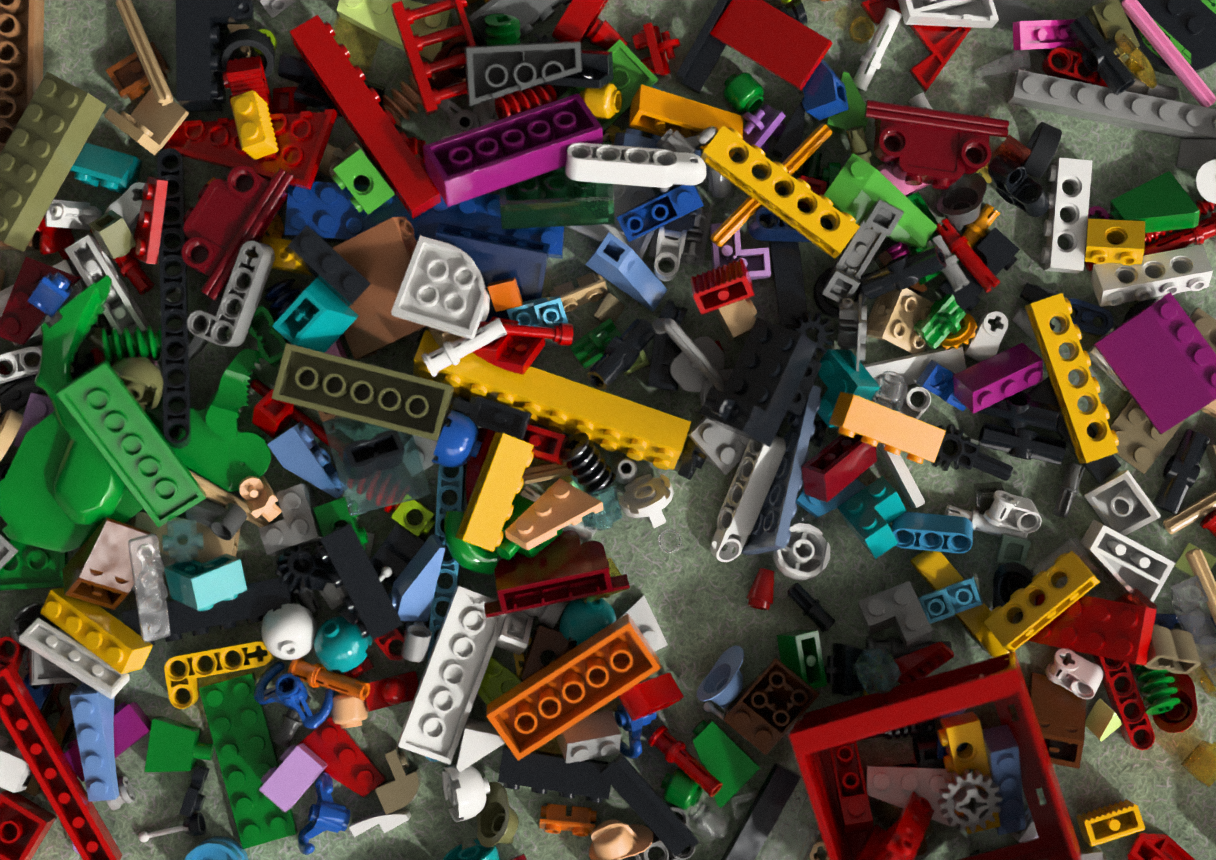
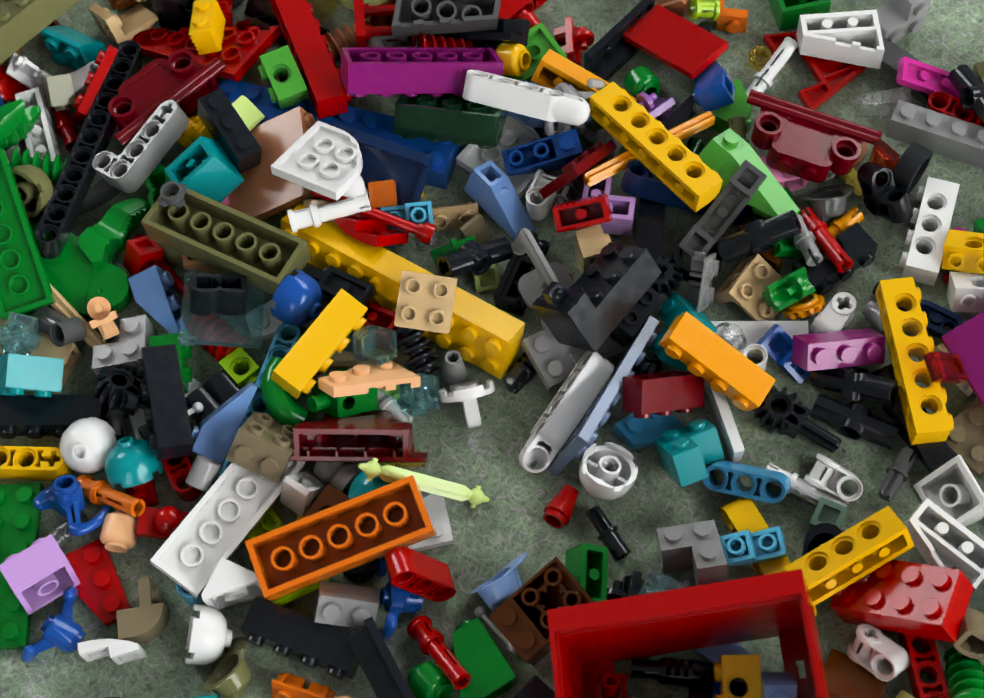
camera: 20 degrees right, 25 degrees down
(291, 357) = (172, 188): none -> dark grey plate
(333, 231) = (248, 112): none -> yellowish green slope
(470, 604) = (263, 446): none -> dark tan bracket
(547, 475) = (375, 344): none -> clear light blue panel
(590, 424) = (425, 302): none -> tan bracket
(631, 606) = (426, 482): none -> yellowish green wheel
(706, 227) = (578, 166): none -> dark red wing
(1104, 386) = (945, 367): none -> clear red tile

